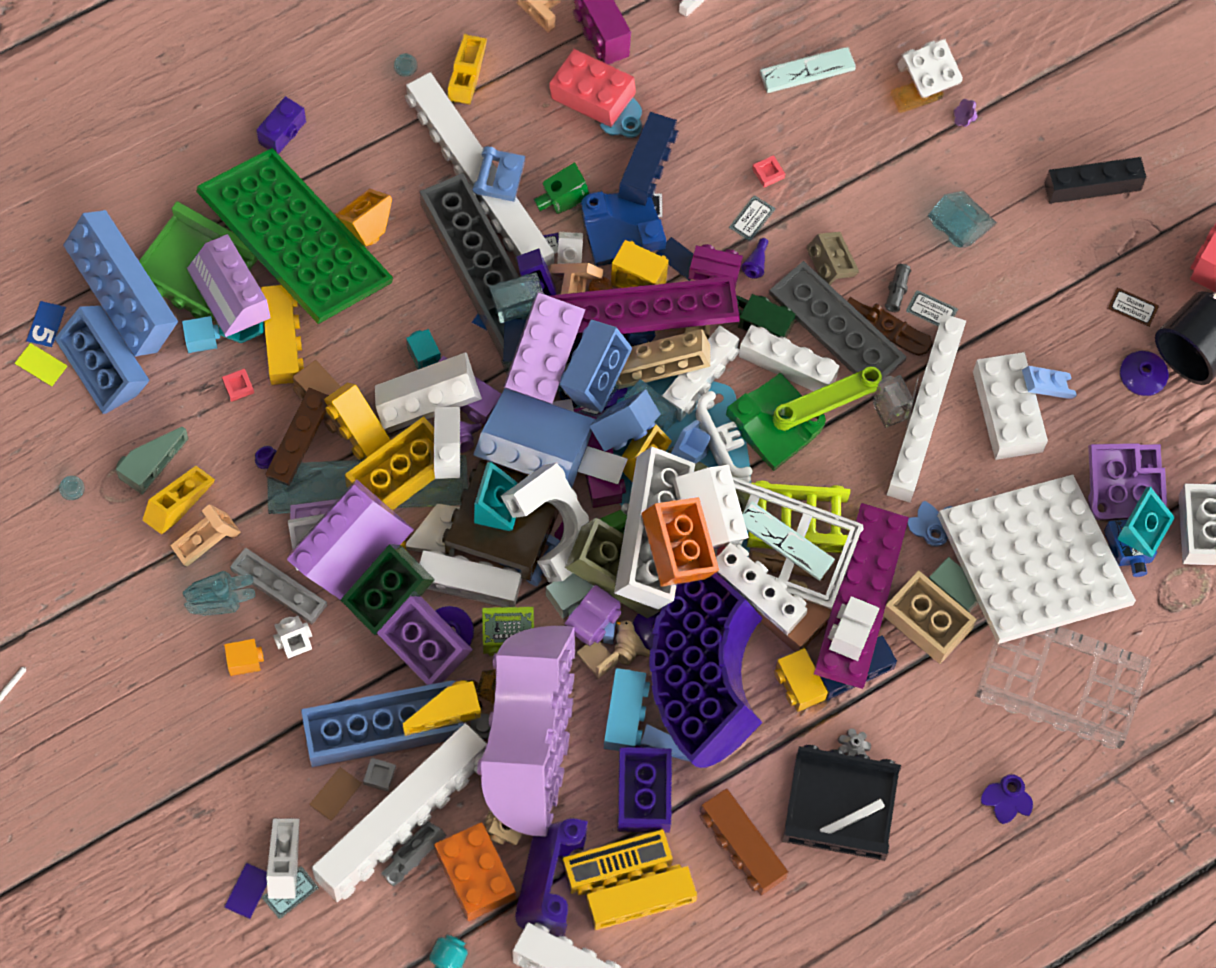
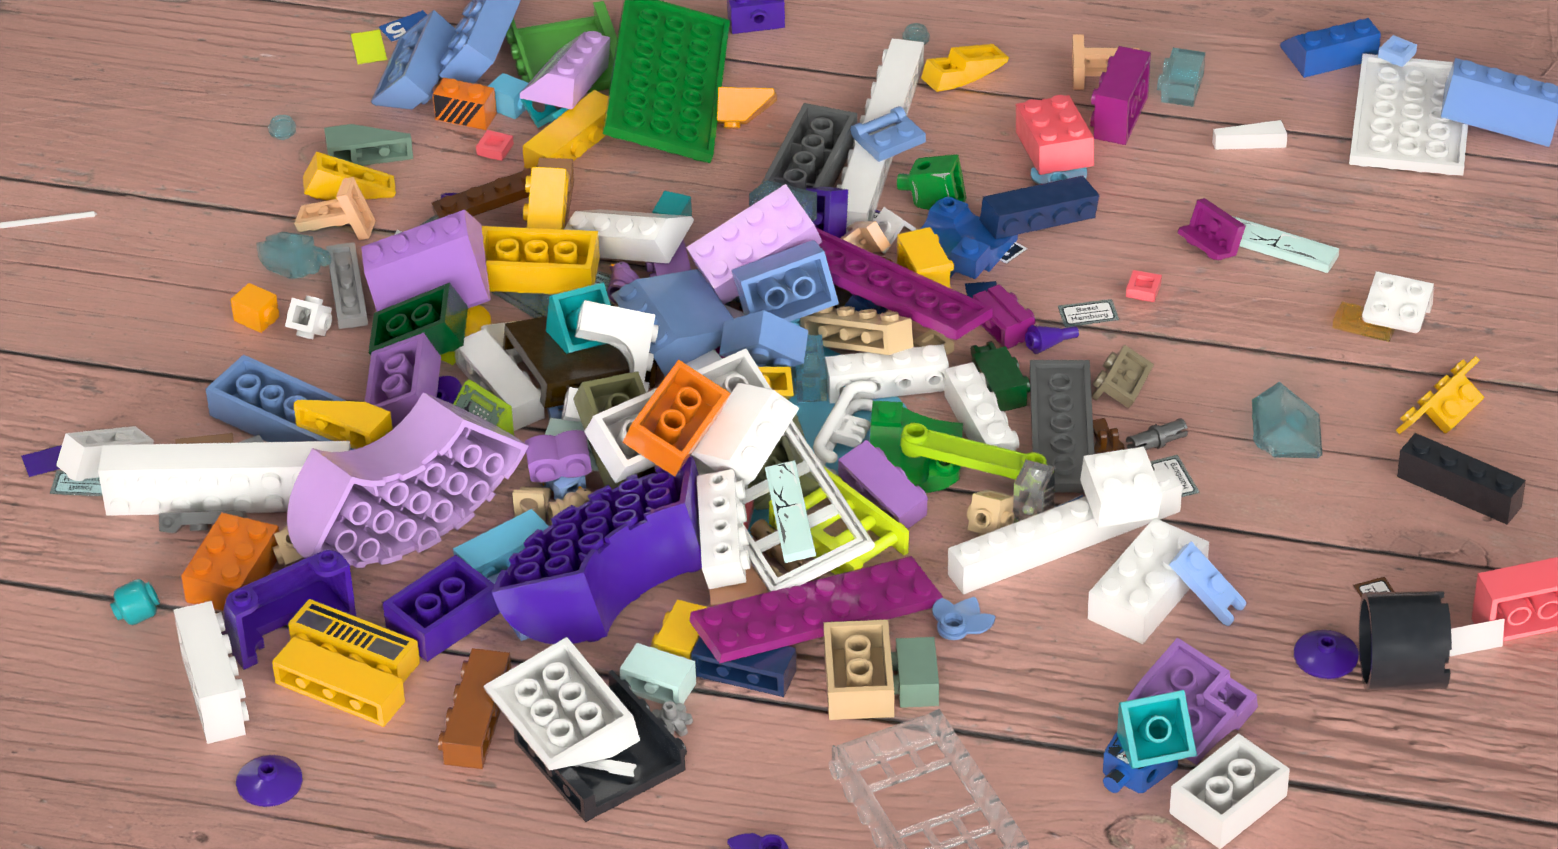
camera: 50 degrees right, 25 degrees down
(179, 366) = (464, 103): none -> orange brick
(447, 442) = (585, 252): white slope -> none
(692, 443) = (811, 400): medium blue panel -> none
(767, 94) = (1213, 231): none -> magenta bracket
(795, 465) = (883, 484): none -> medium lavender brick
(808, 803) = (563, 708): none -> white slope
(818, 721) = (658, 674): none -> light aqua brick
(853, 628) = (771, 595): white piece -> none
(878, 433) = (990, 511): none -> tan brick
(952, 358) = (1121, 486): none -> white brick
(965, 113) = (1395, 360): medium lavender plant -> none
(1025, 123) = (1450, 402): none -> yellow bracket
(1035, 558) = (1017, 697): white plate -> none

